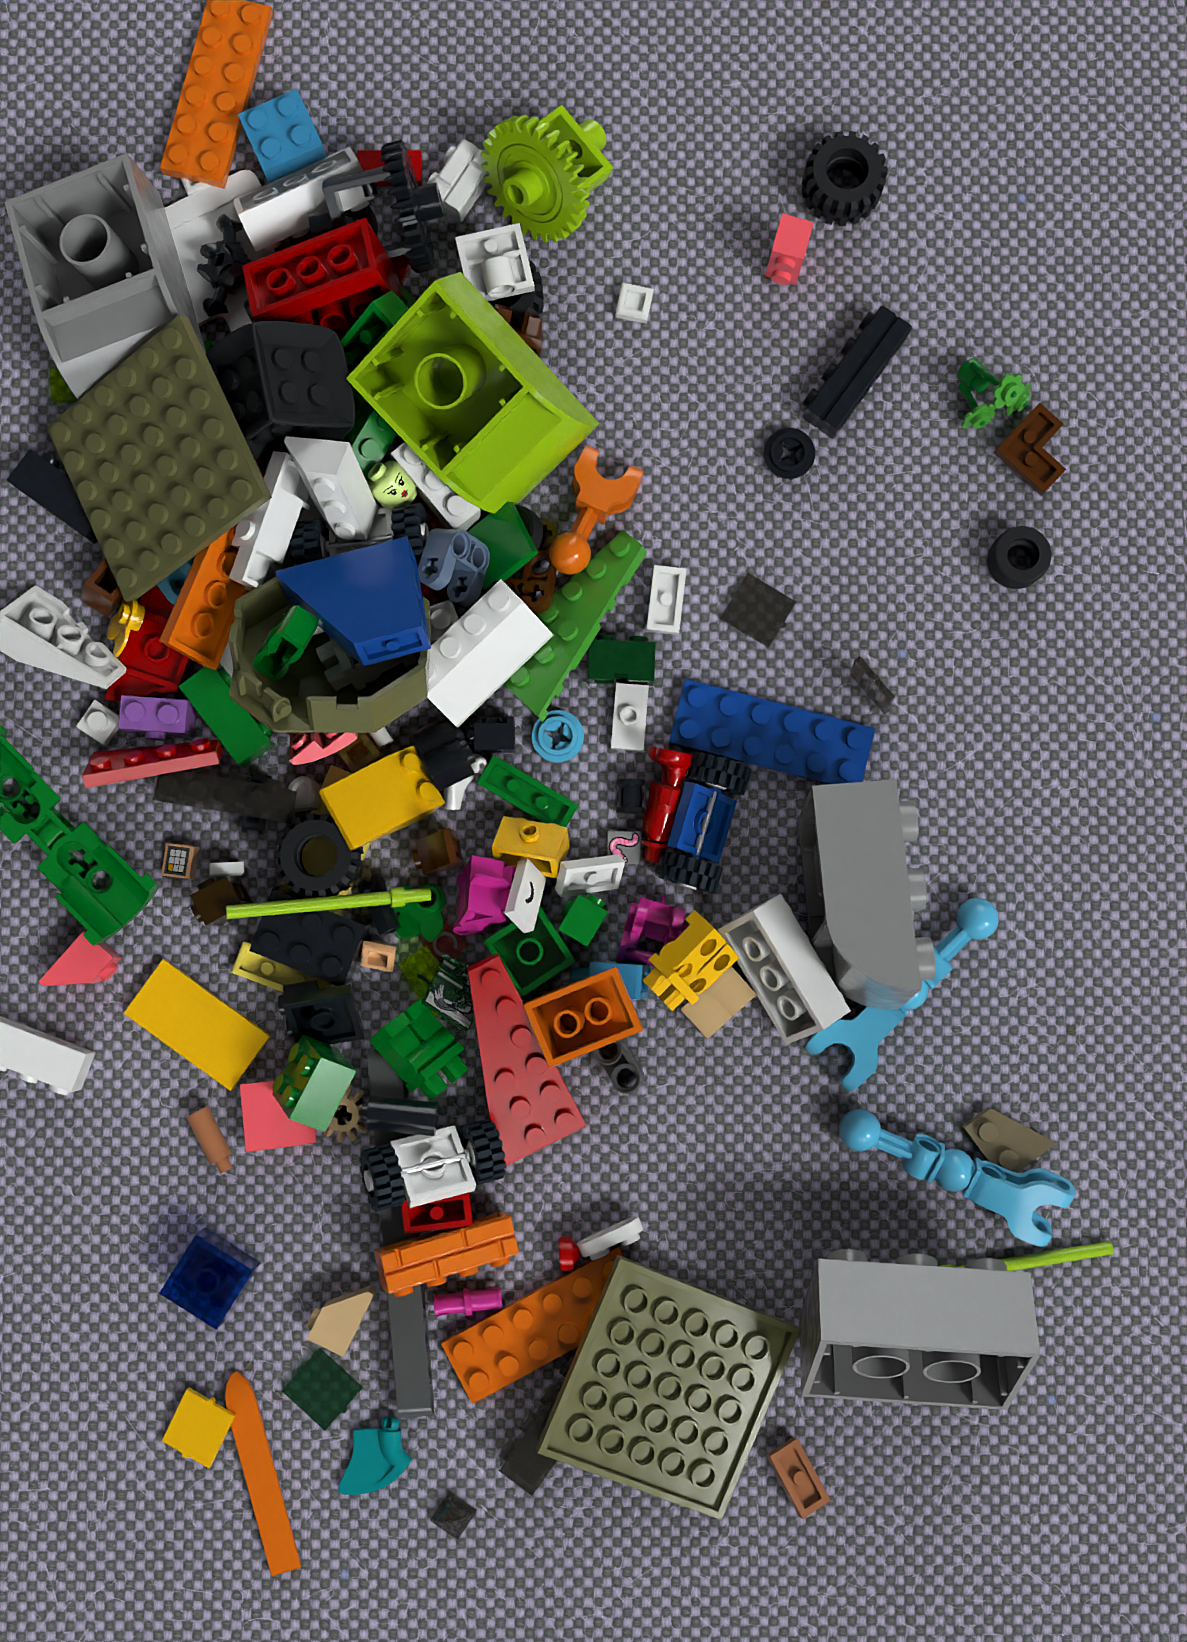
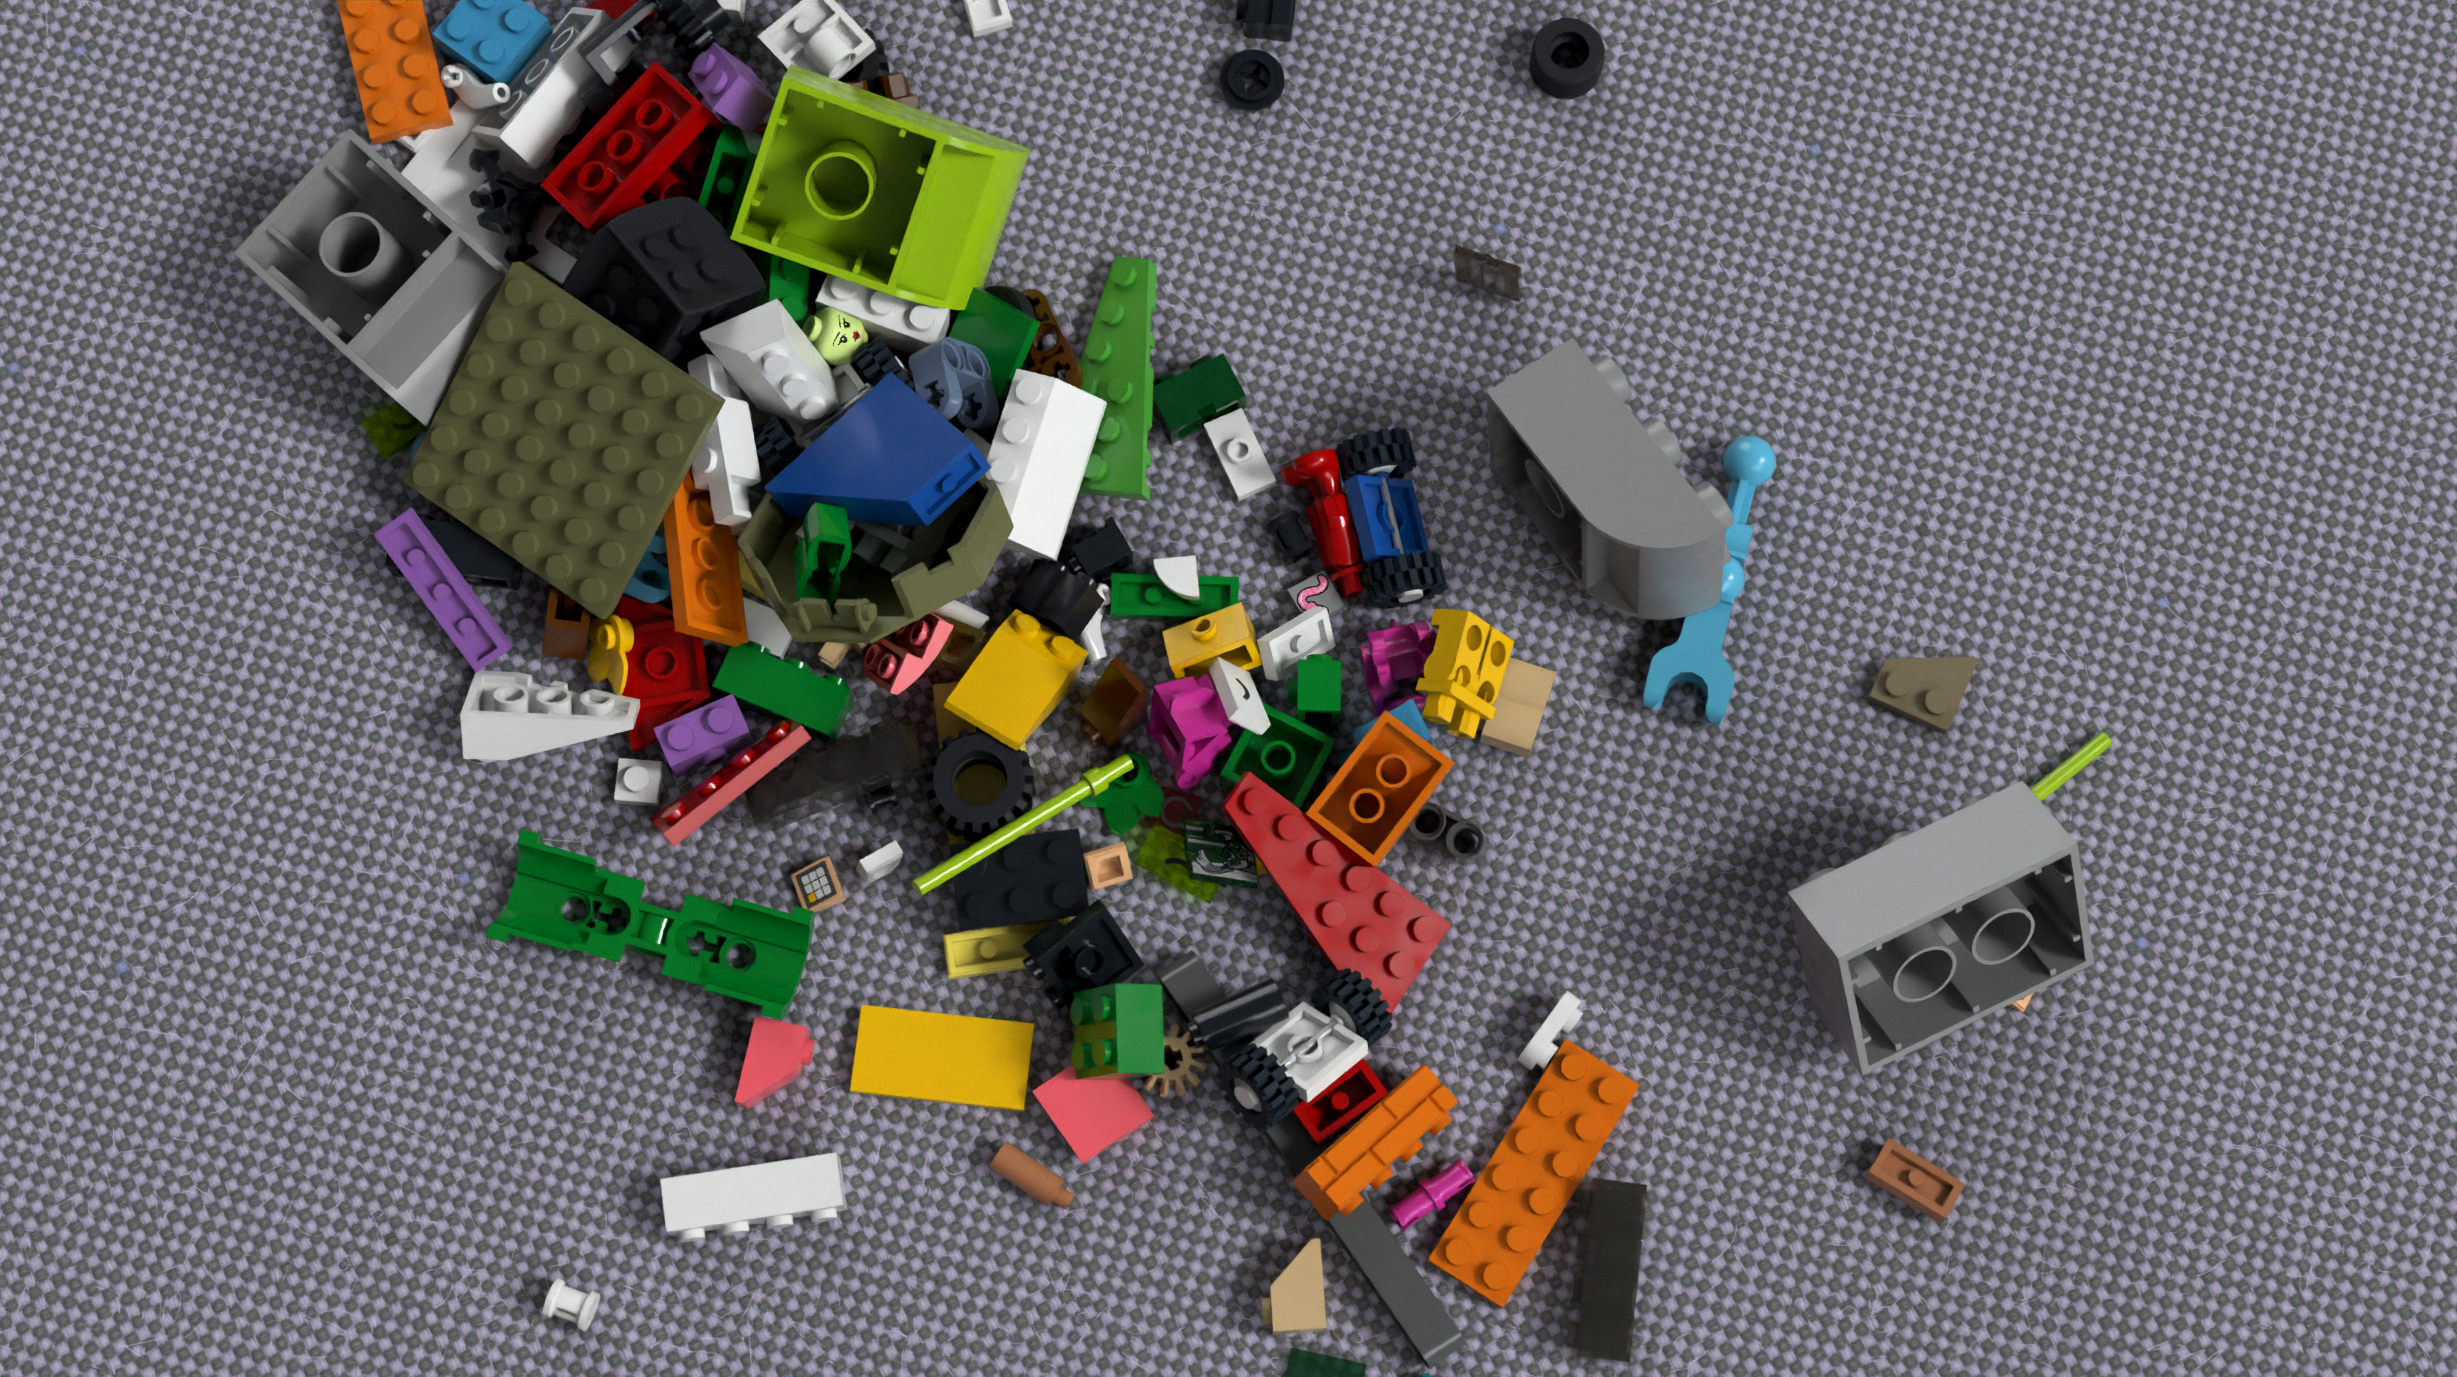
camera: 30 degrees left, 10 degrees down
(35, 519) = (443, 589): none -> medium lavender plate
(210, 1278) = (1122, 1327): clear blue brick -> none
(213, 898) = (891, 897): dark brown brick -> none
(248, 168) = (472, 89): none -> white arm
(307, 794) = (927, 729): white tile -> none
(382, 915) = (1083, 814): black bar -> none
(406, 266) = (731, 88): none -> medium lavender brick
(418, 1048) = (1217, 936): green hips -> none
(537, 783) = (1179, 575): none -> white tile
(568, 1253) = (1512, 1076): red tile -> none
(572, 730) = (1184, 503): medium azure gear -> none
(594, 503) = (1068, 240): orange piece -> none
(666, 600) = (1207, 306): white plate -> none
(668, 1388) = (1711, 1155): olive plate -> none
(758, 610) = (1314, 265): clear smoke piece -> none
(771, 735) = (1401, 388): blue plate -> none
(784, 970) = (1572, 625): white brick -> none
(982, 1182) = (1887, 744): medium azure piece -> none

